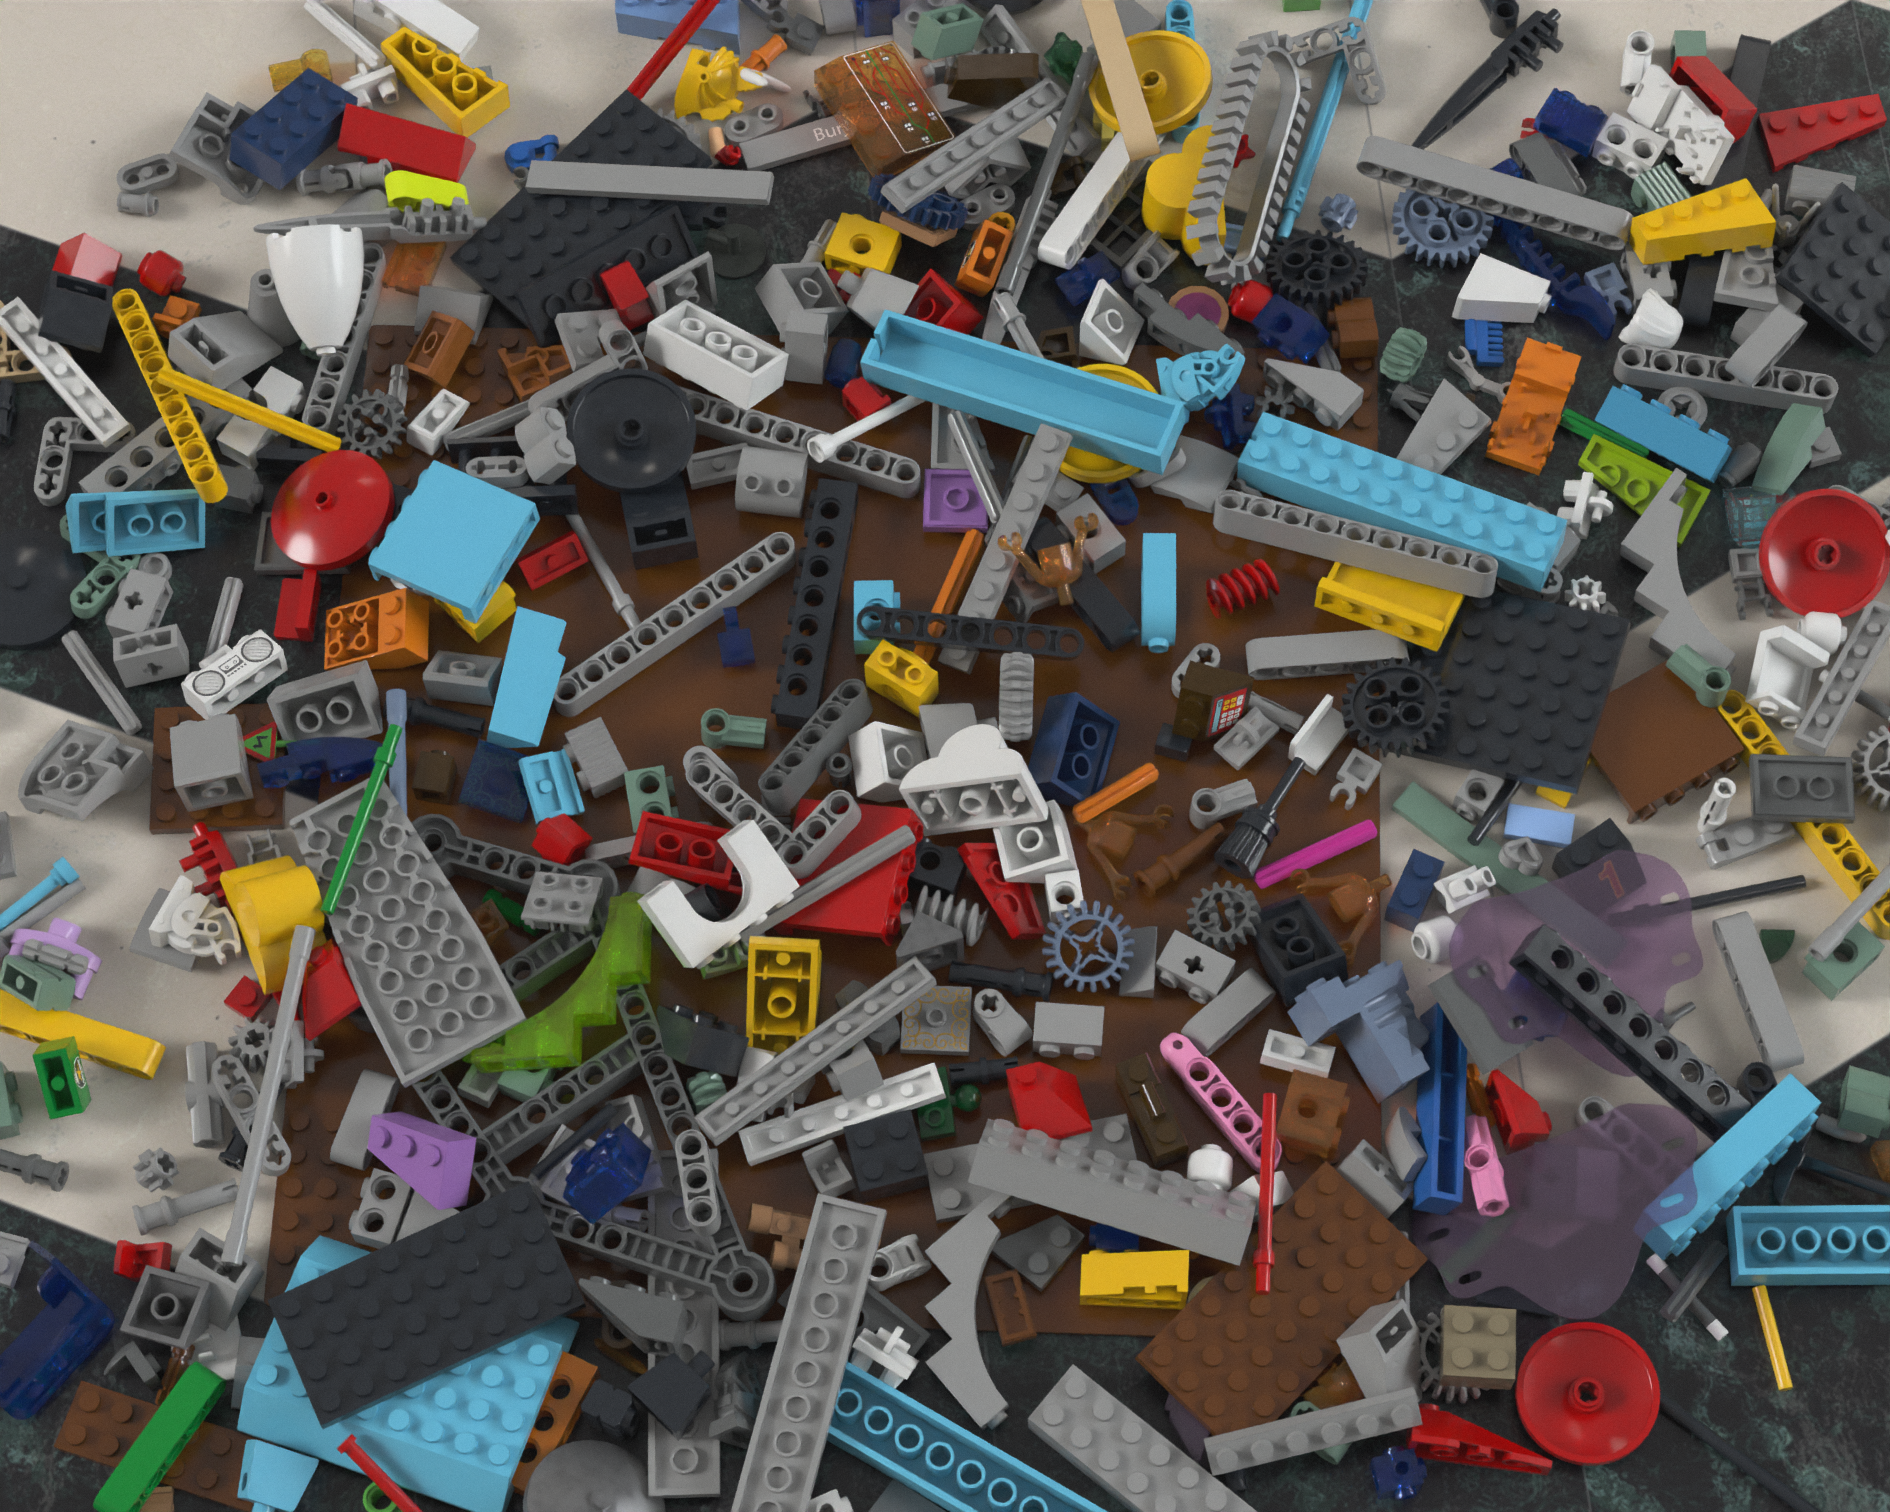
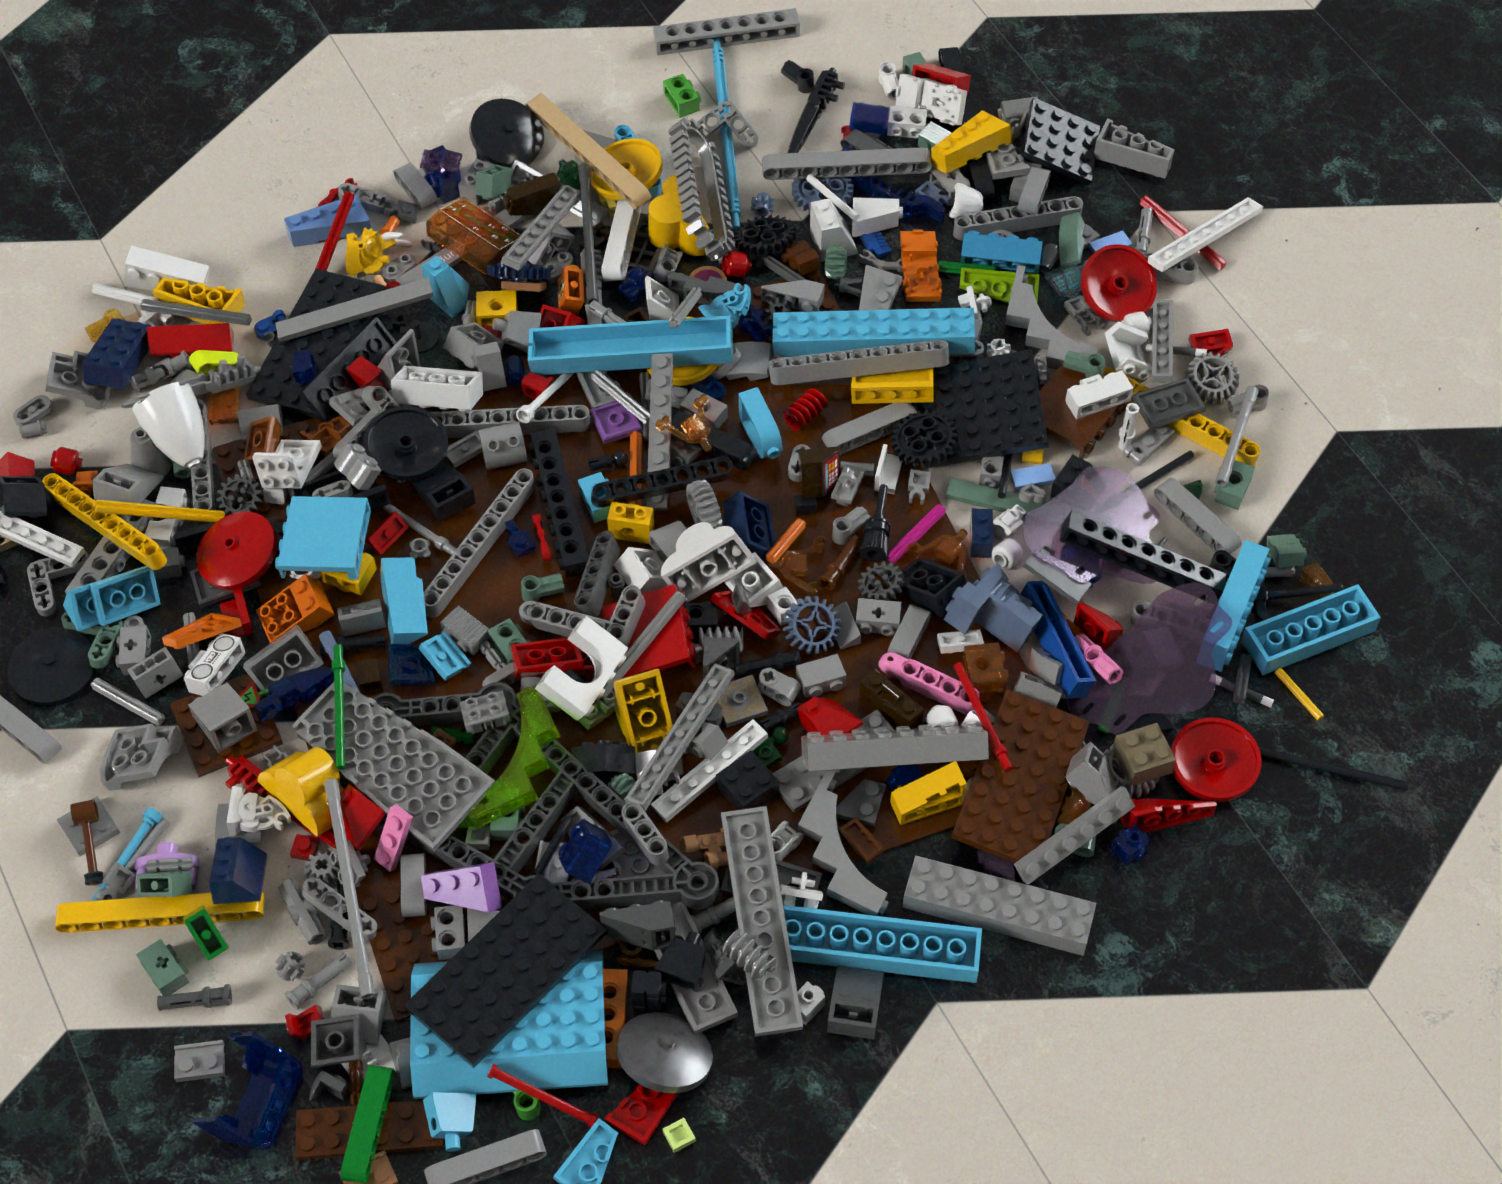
camera: 25 degrees left, 10 degrees down
(138, 1003) = (237, 871): none -> dark blue slope
(236, 614) = (201, 629): none -> orange wing
(359, 1043) = (393, 838): none -> bright pink plate
(426, 102) = (196, 312): none -> dark grey axle
(457, 400) = (288, 464): none -> white bracket
(541, 248) = (303, 366): none -> clear blue brick
(561, 840) = (464, 681): red brick -> none
(586, 593) = (419, 543): none -> light grey plate
(620, 811) = (492, 655): none -> light grey axle
(757, 1425) = (747, 955): none -> light grey piece
(763, 672) = (545, 550): none -> red piece
(806, 184) = (447, 285): none -> medium azure slope
(828, 1169) = (713, 804): light grey bracket -> none
(933, 563) = (618, 458): none -> black pin
(999, 870) = (740, 600): none -> flat silver slope
(1126, 361) = (685, 307): none -> light grey axle
(1290, 329) = (766, 268): clear blue brick -> none
(1422, 297) = (829, 229): none -> white slope
(1446, 244) = (836, 200): none -> white bar
(1634, 655) = (1041, 369): none -> light grey gear
(1705, 737) = (1098, 394): none -> white piece
(1804, 130) = (998, 85): red wing -> none
(1856, 475) = (1116, 238): none -> light blue tile

